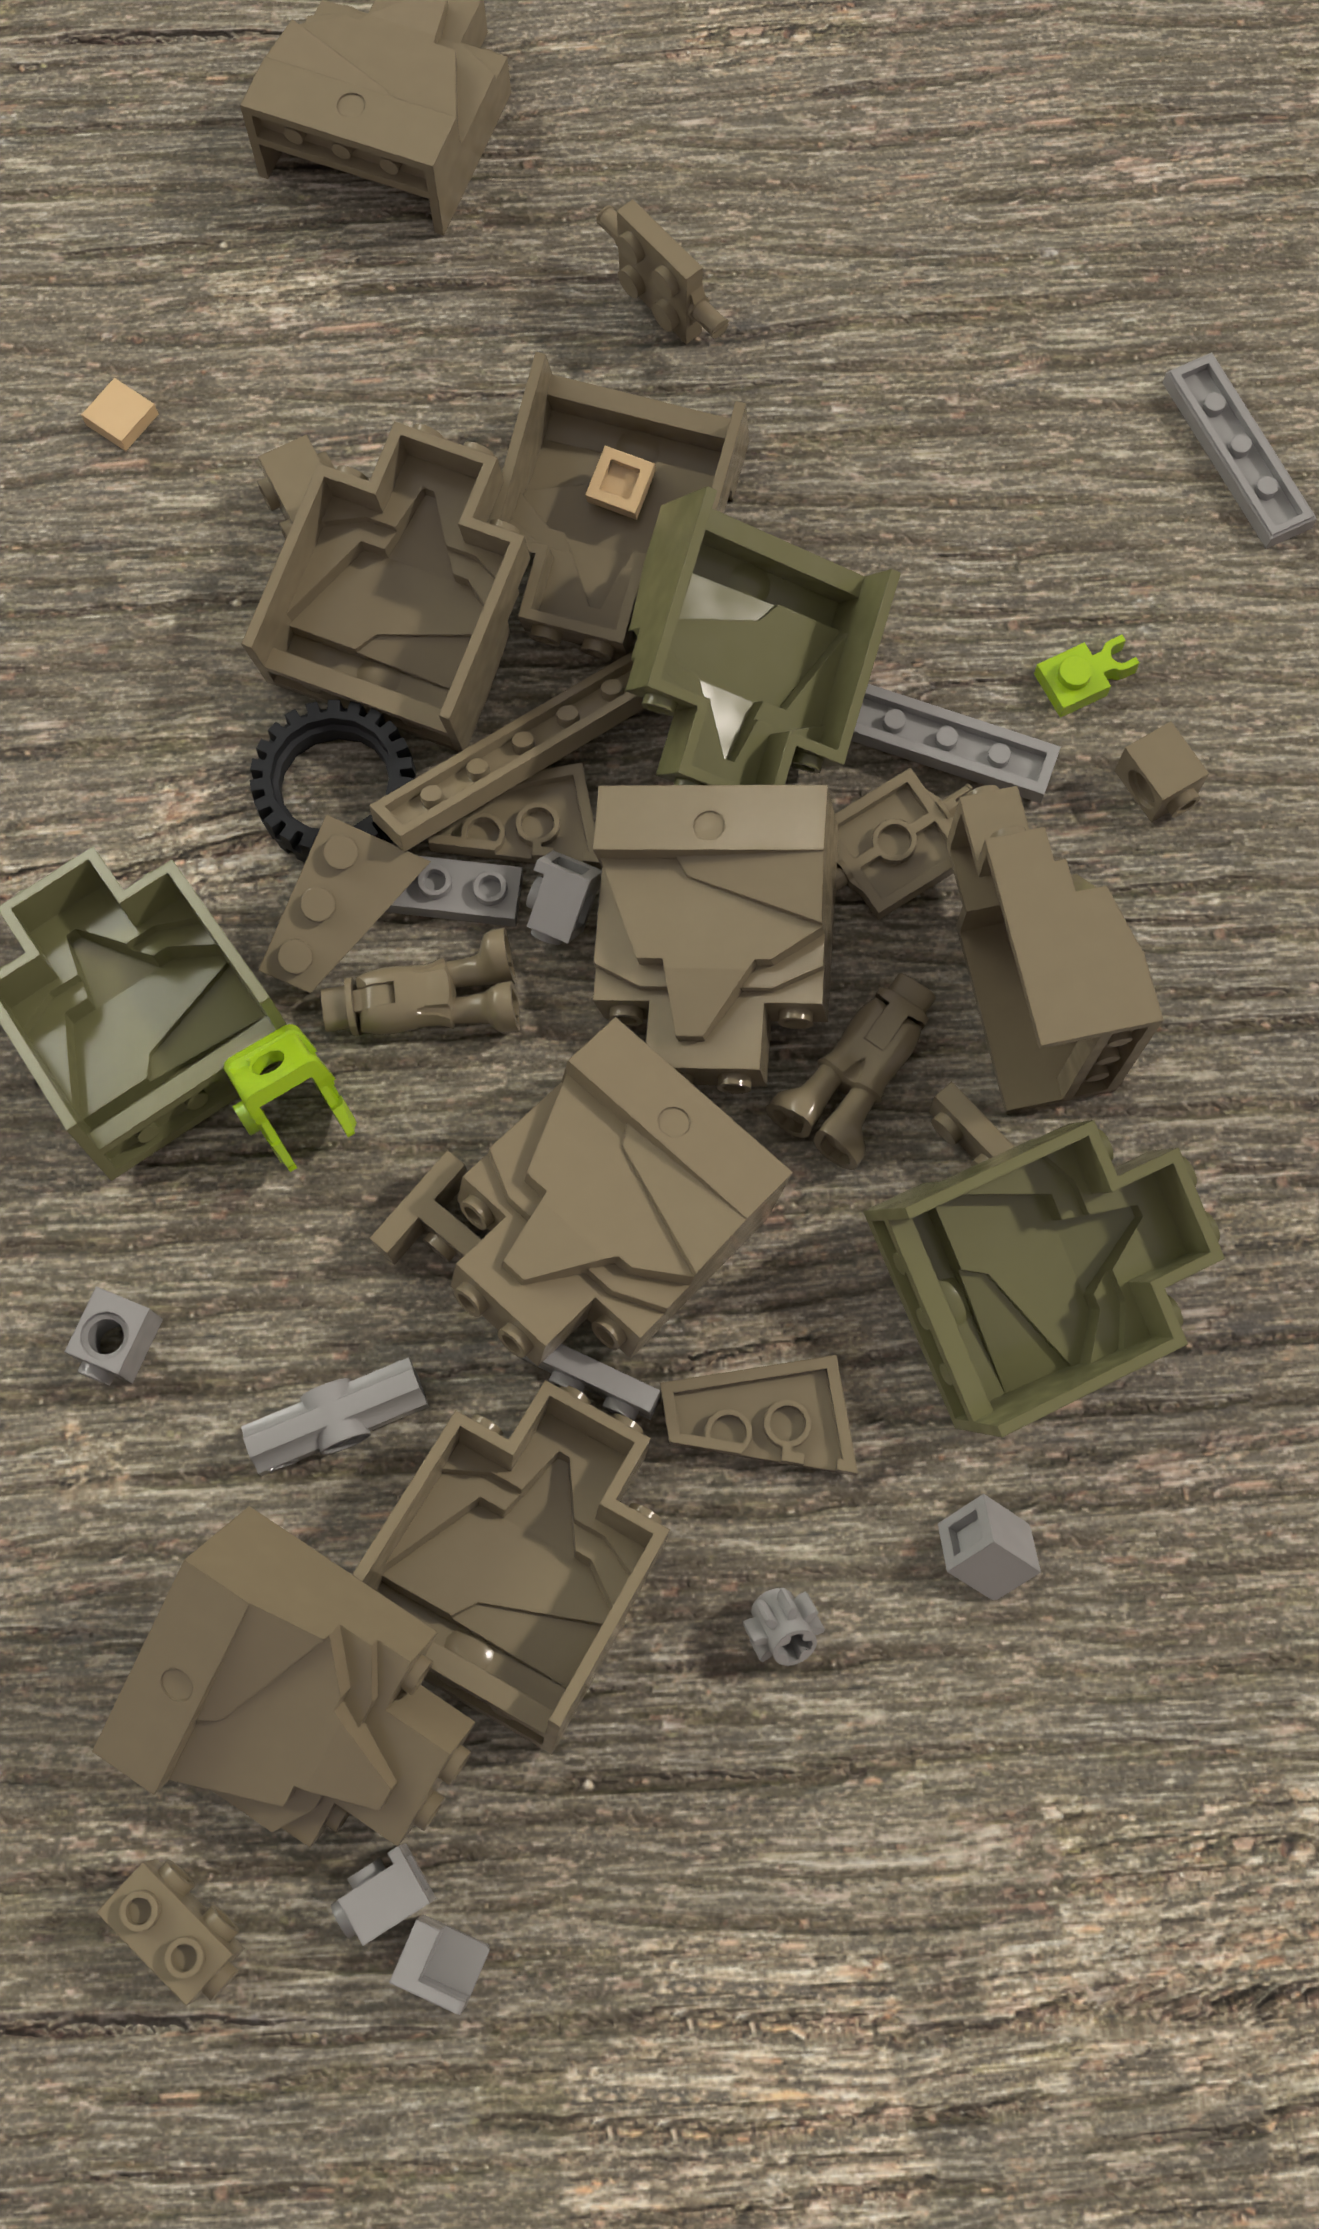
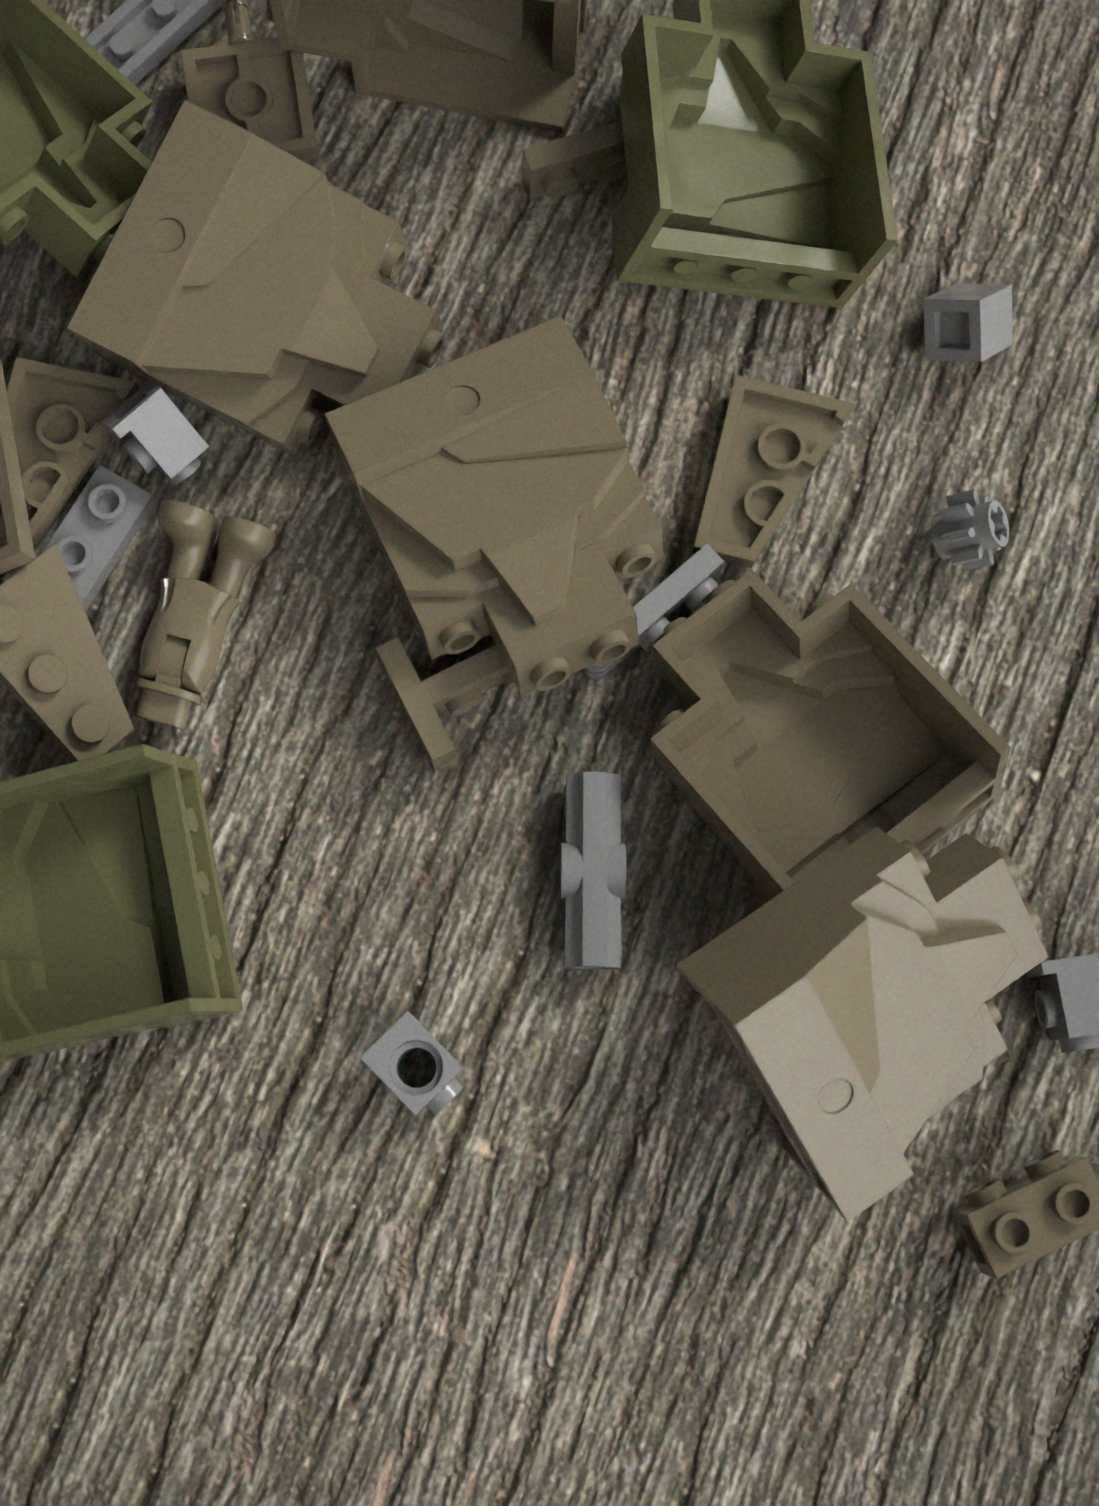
camera: 75 degrees left, 5 degrees up
(298, 1065) = (235, 806): lime piece -> none
(860, 1067) = (463, 235): dark tan piece -> none

